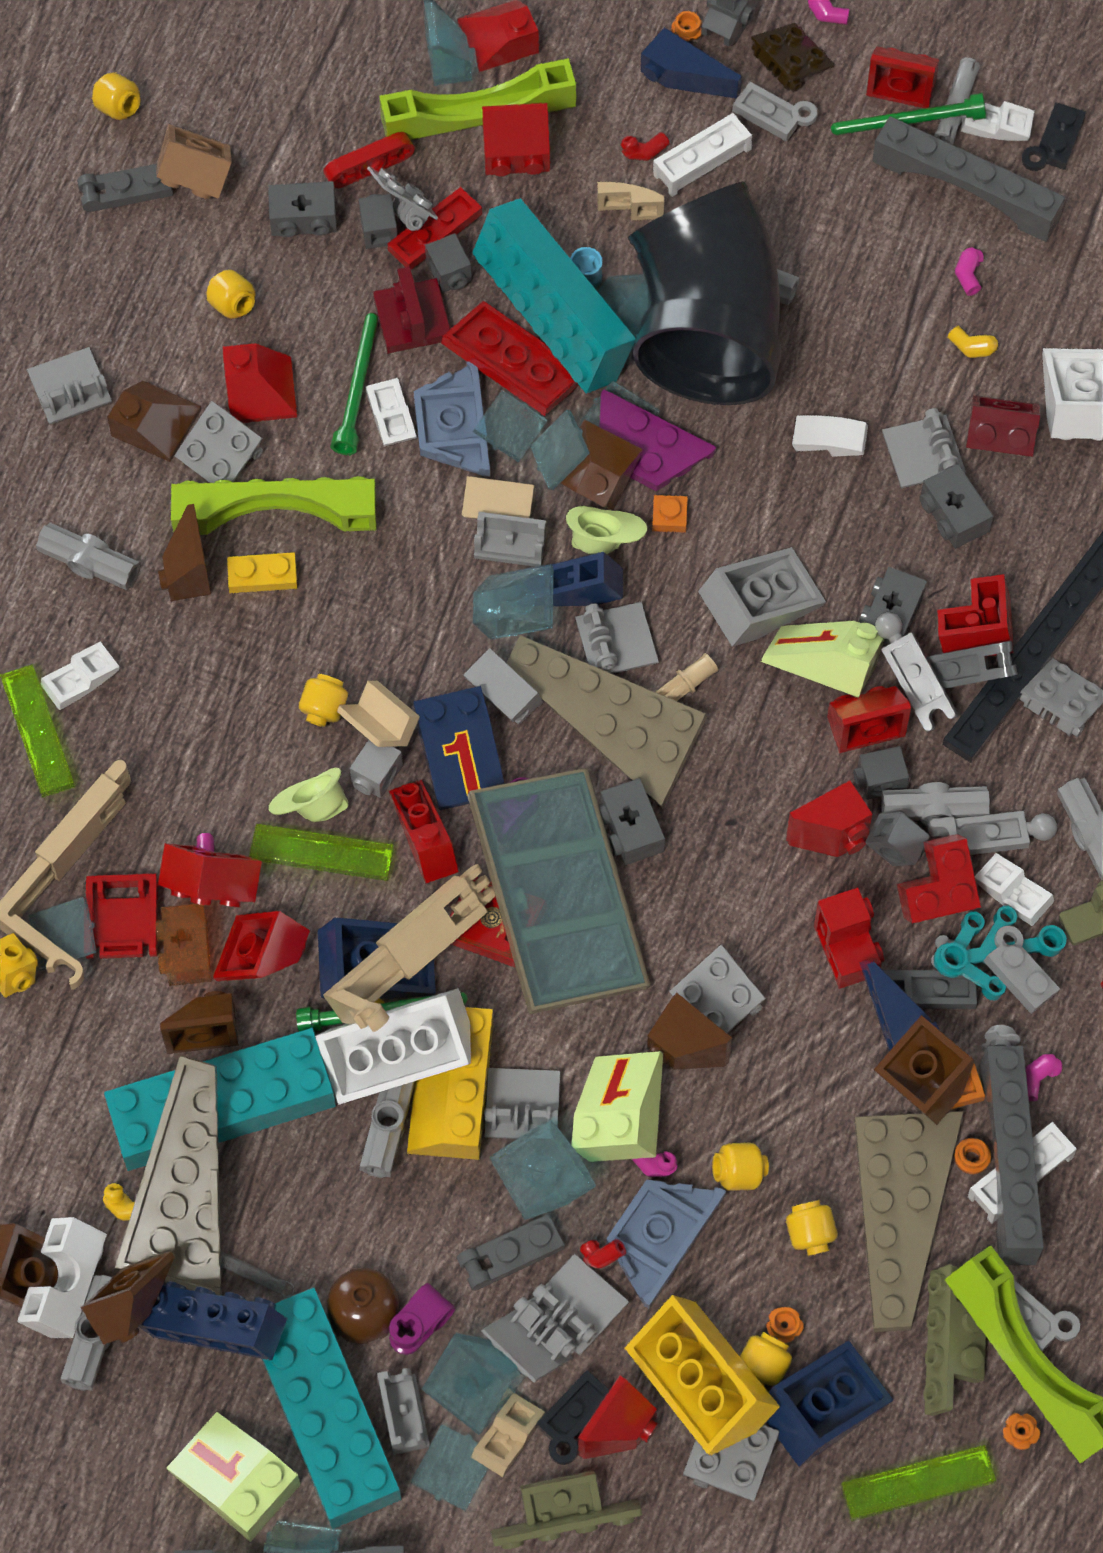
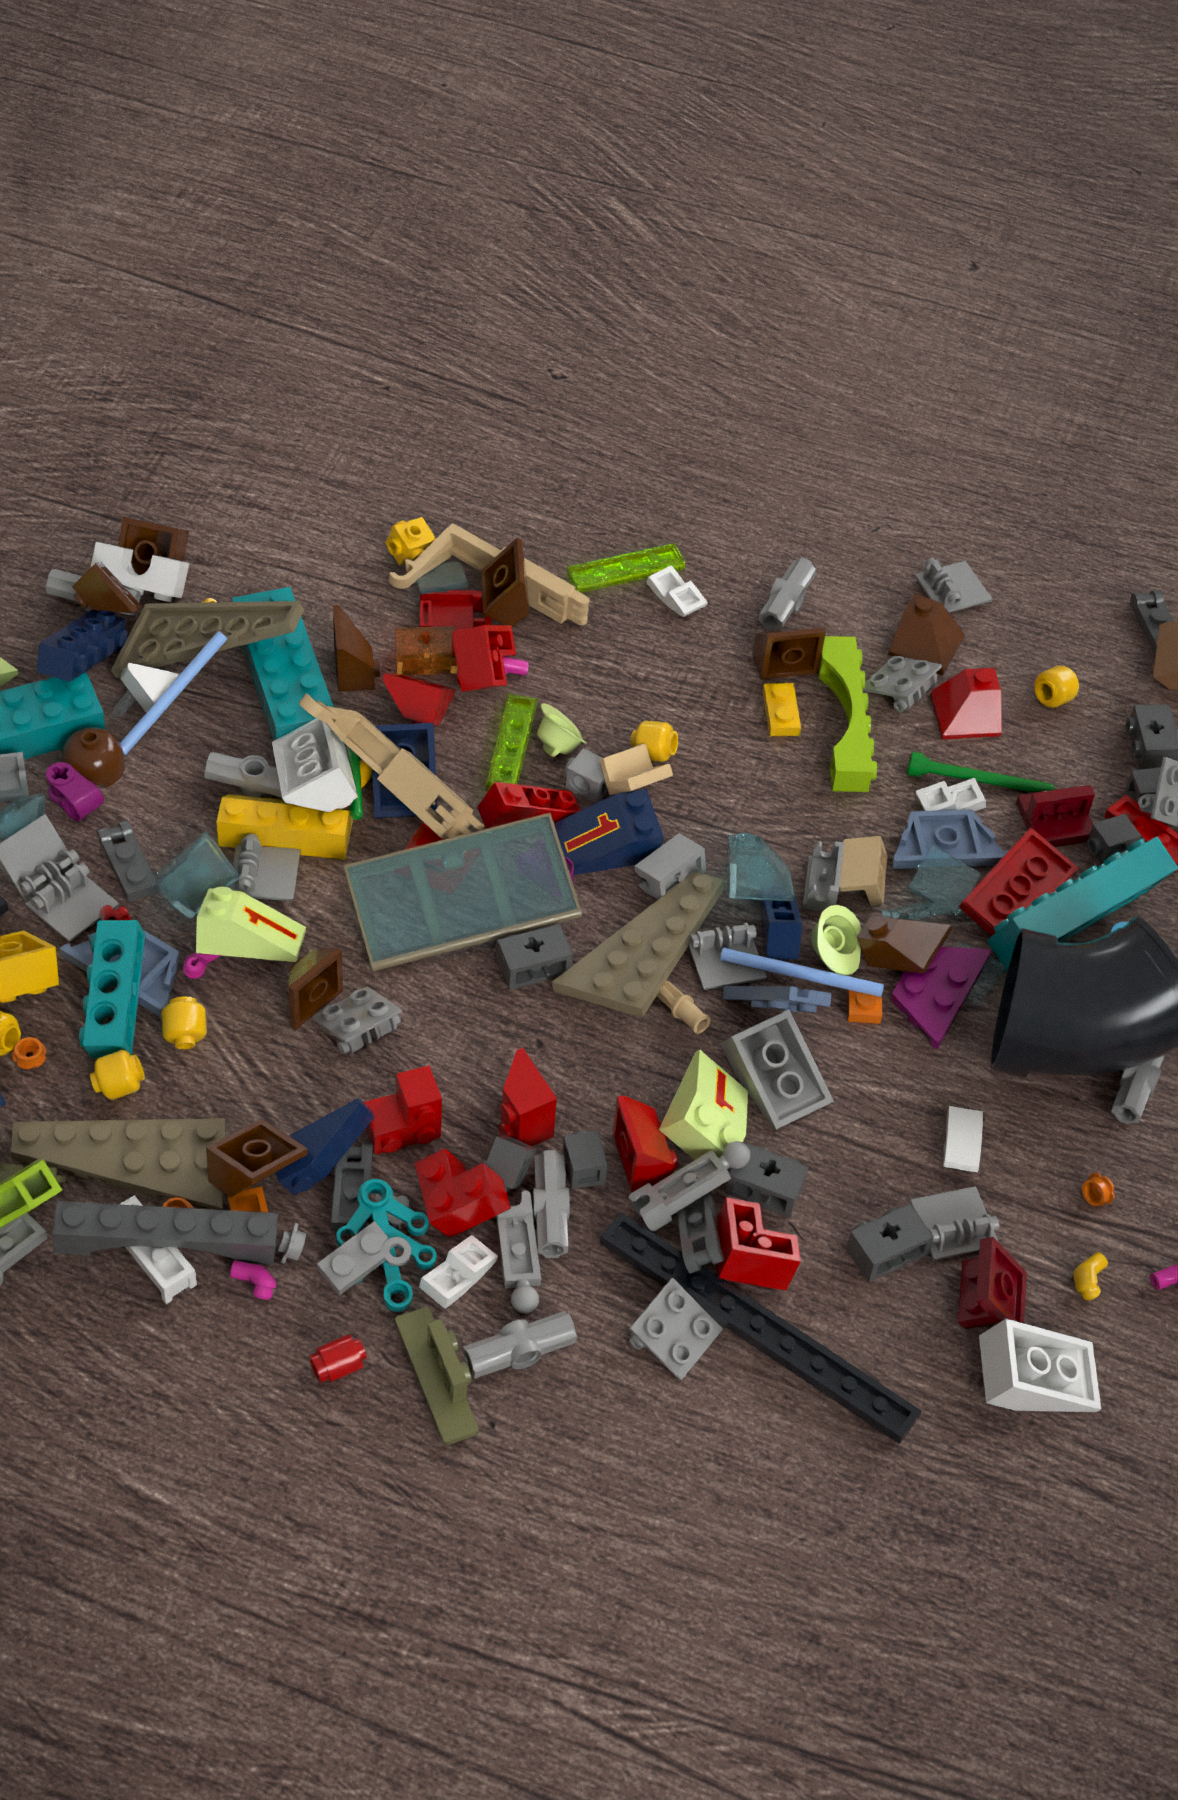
camera: 85 degrees right, 15 degrees down
(94, 850) = (505, 586): none -> reddish brown slope
(257, 1241) = (146, 683): none -> white slope
(278, 1212) = (172, 692): none -> light blue piece
(642, 565) = (802, 972): none -> light blue piece
(688, 580) = (779, 997): none -> sand blue wing
(768, 1230) = (112, 939): none -> teal brick
(880, 325) = (1098, 1190): none -> orange plate

